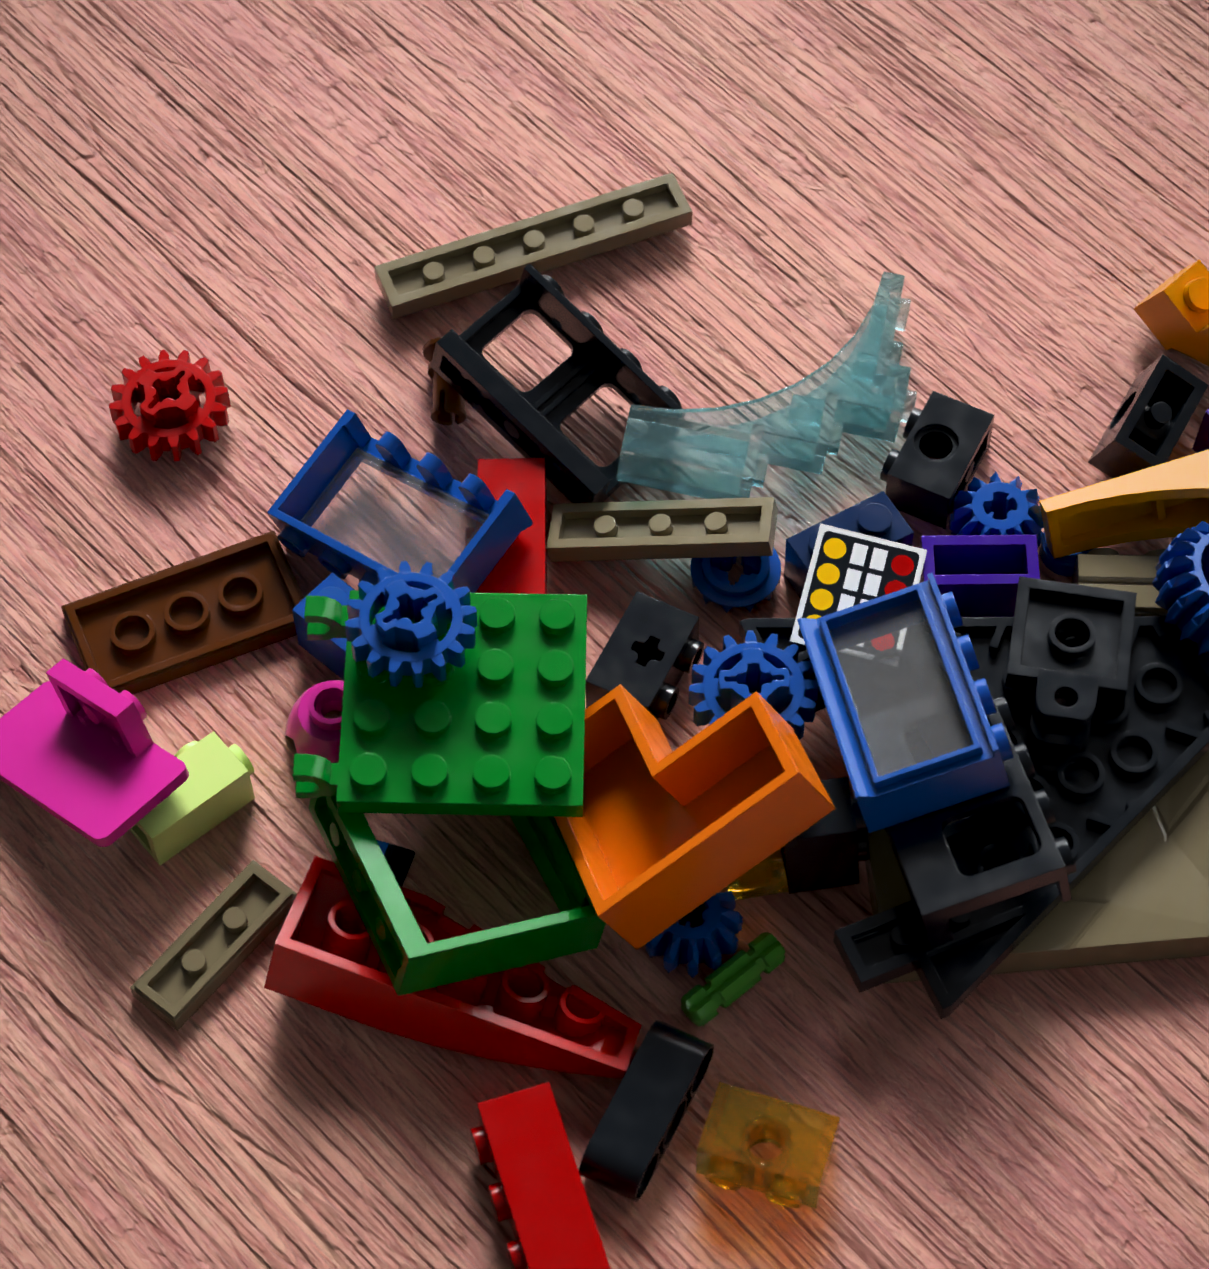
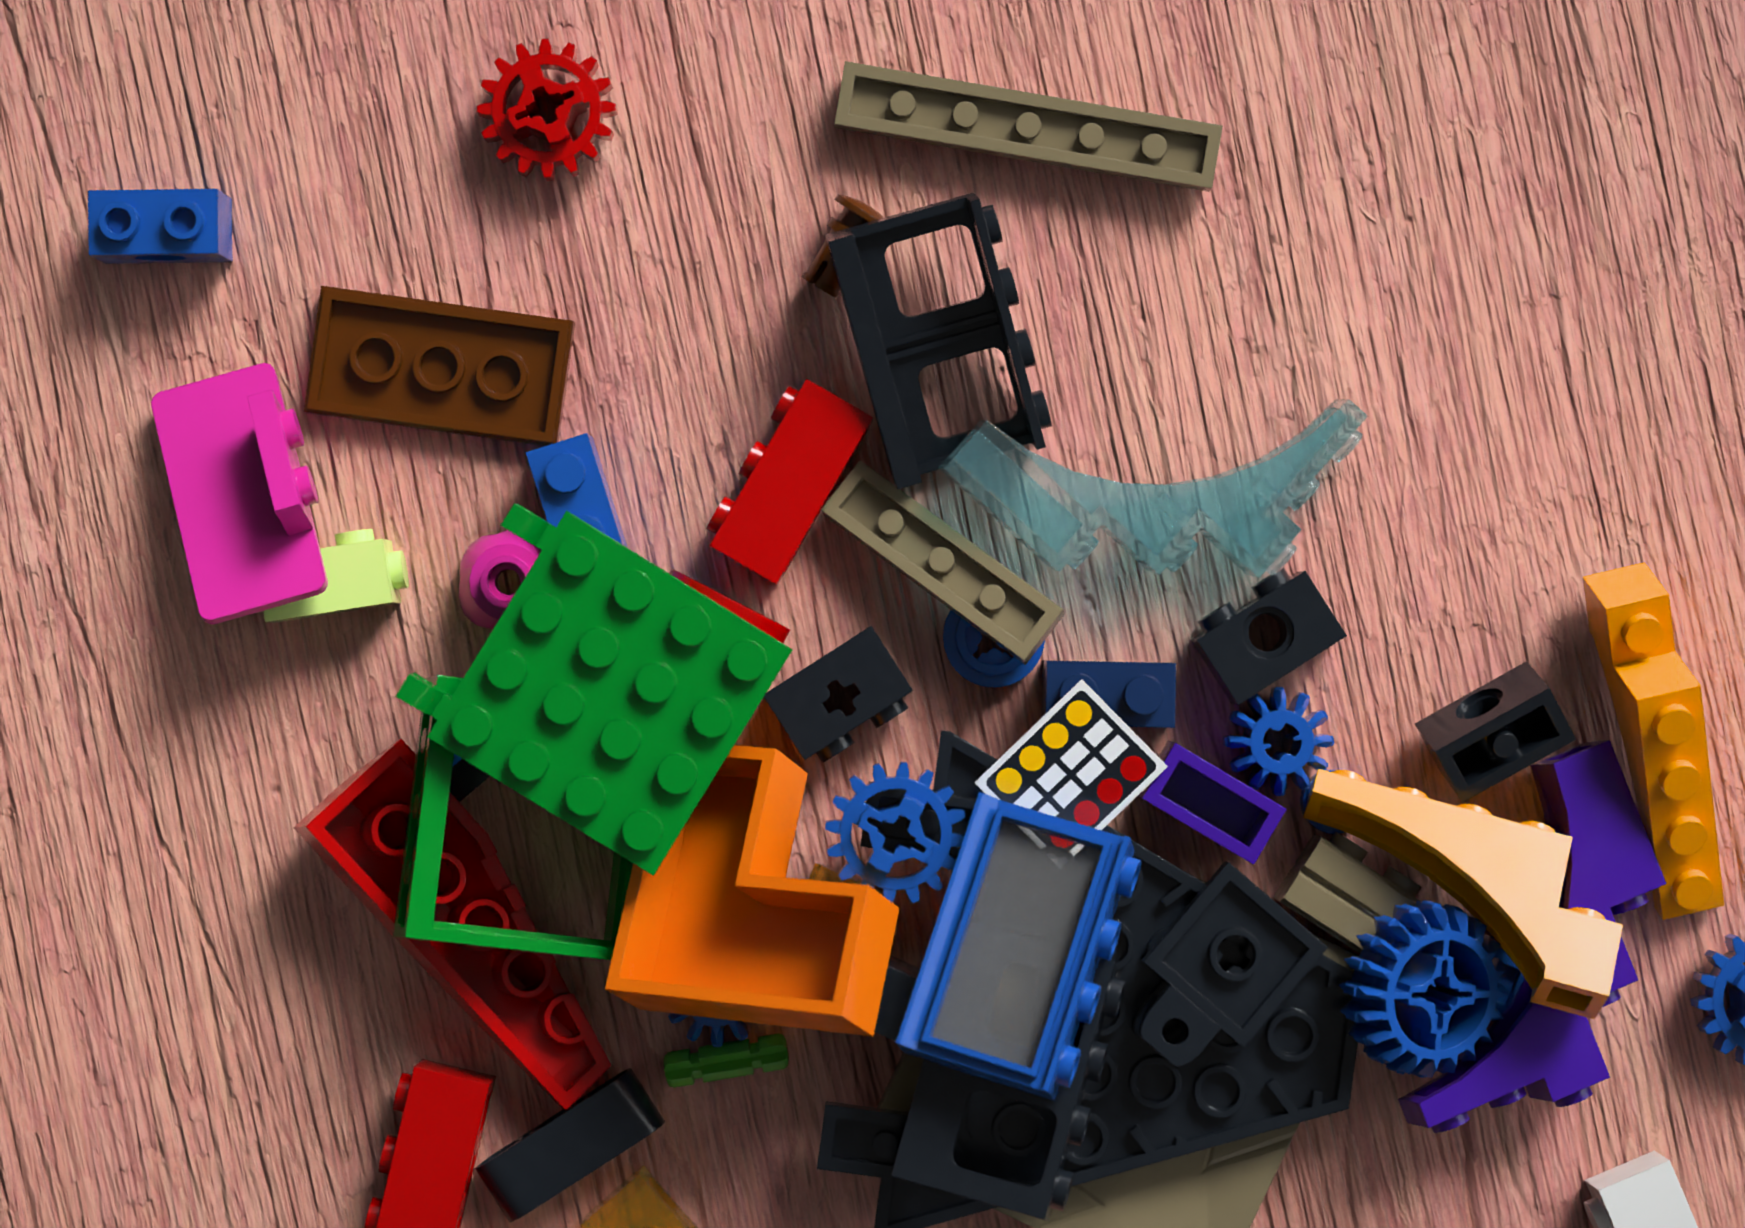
camera: 25 degrees right, 30 degrees up
(214, 945) = (281, 741): dark tan tile -> none
(374, 505) = (685, 406): window -> none
(409, 627) = (589, 641): blue gear -> none

